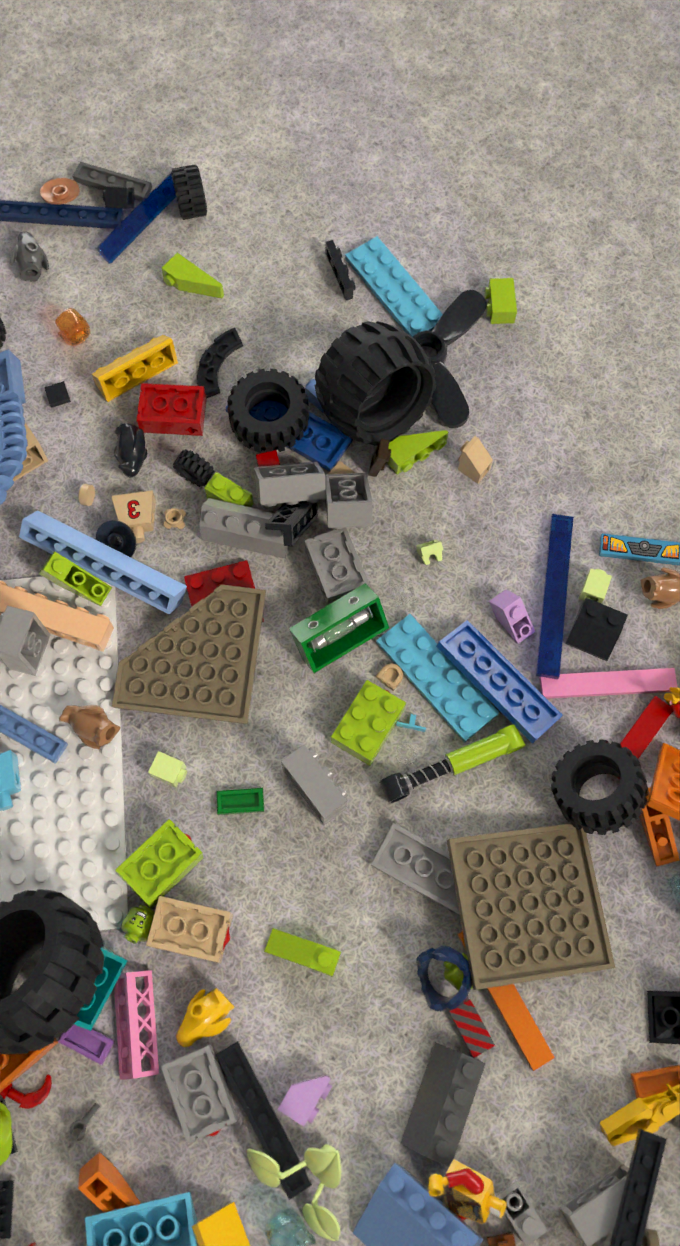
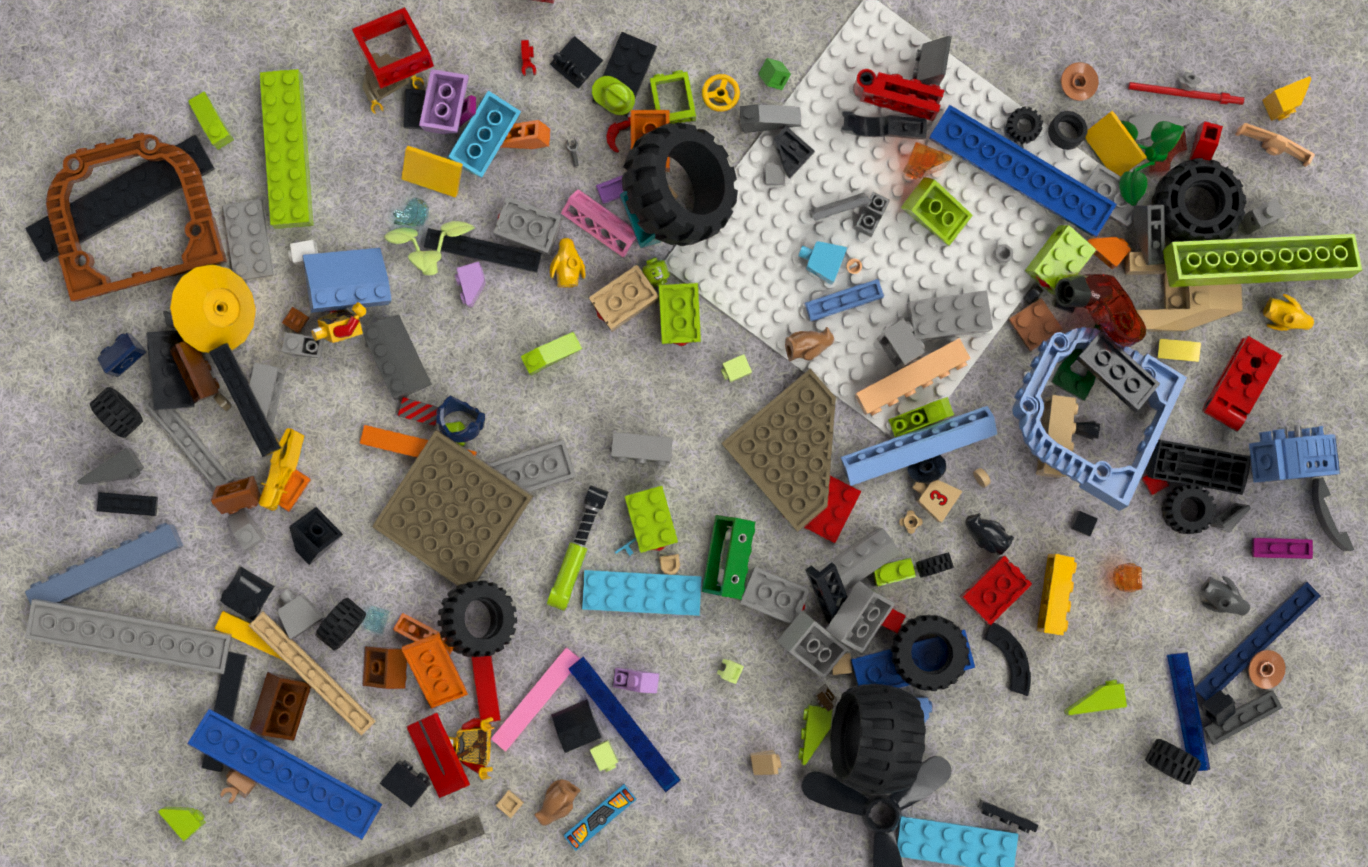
camera: 130 degrees right, 15 degrees up
(240, 801) = (676, 396): green tile -> none
(499, 681) = (601, 628): plate -> none

